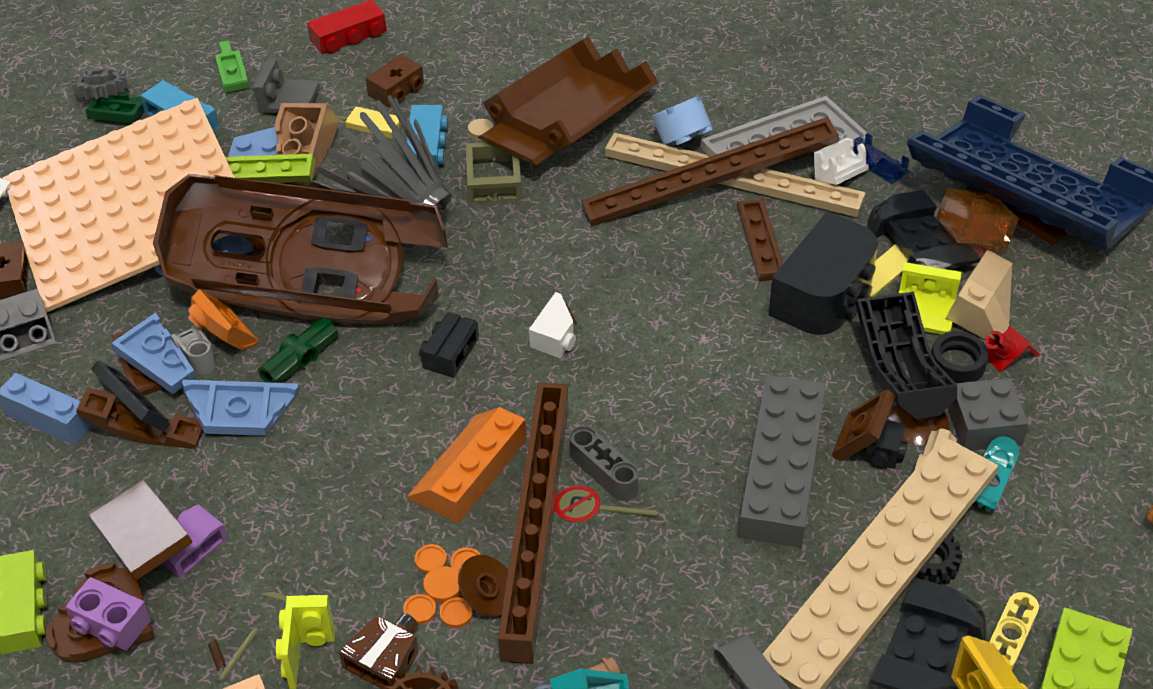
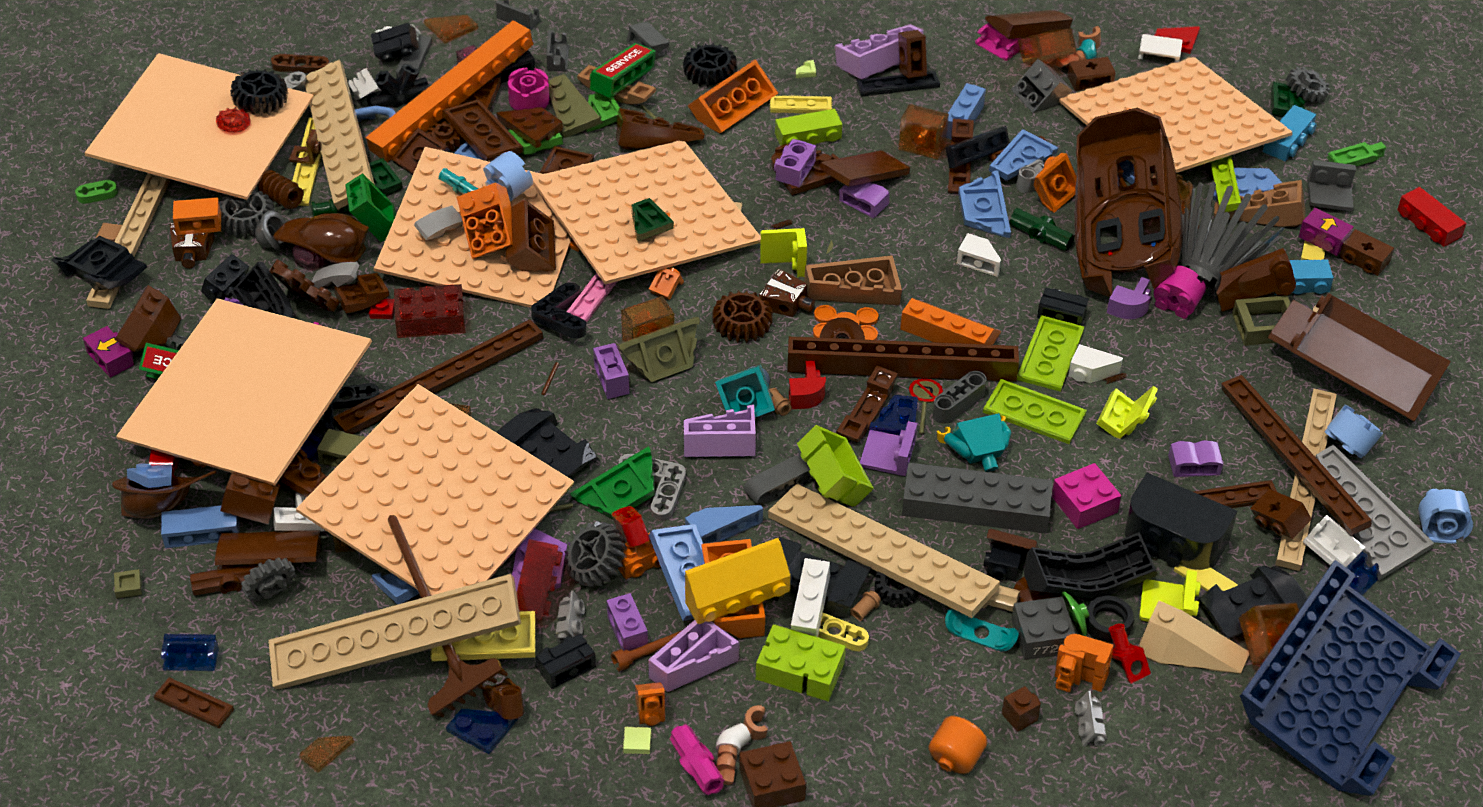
camera: 85 degrees right, 0 degrees up
(81, 451) = (923, 131): none -> clear orange brick
(337, 419) = (979, 255): none -> white slope
(361, 98) = (1325, 231): none -> magenta brick
(375, 555) = (855, 281): none -> medium nougat wedge
(449, 146) = (1257, 279): none -> reddish brown slope
(449, 276) = (1129, 303): none -> medium lavender brick
(458, 230) = (1180, 292): none -> dark pink brick
(517, 366) = (1050, 353): none -> lime tile
(581, 629) = (807, 391): none -> red brick
(600, 563) = (869, 405): none -> reddish brown slope
(622, 394) = (1035, 411): none -> lime tile
(633, 534) = (896, 415): none -> clear blue wing
(642, 296) = (1123, 414): none -> neon yellow bracket
(684, 444) = (979, 439): none -> teal torso
(697, 543) = (889, 451): none -> medium lavender bracket
(709, 255) = (1195, 458): none -> medium lavender brick
(748, 602) = (834, 466): none -> lime piece
(775, 350) = (1086, 495): none -> dark pink brick
(795, 78) = (1449, 511): none -> light blue brick
(809, 179) = (1280, 514): none -> reddish brown brick
(961, 584) = (865, 605): none -> medium nougat pin
(970, 372) = (1076, 612): none -> bright green dish
(1024, 645) = (811, 597): none -> white brick
(1042, 386) = (1084, 660): none -> orange hips
(1108, 391) = (1089, 711): none -> light grey hinge
(1112, 446) = (1021, 708): none -> reddish brown brick

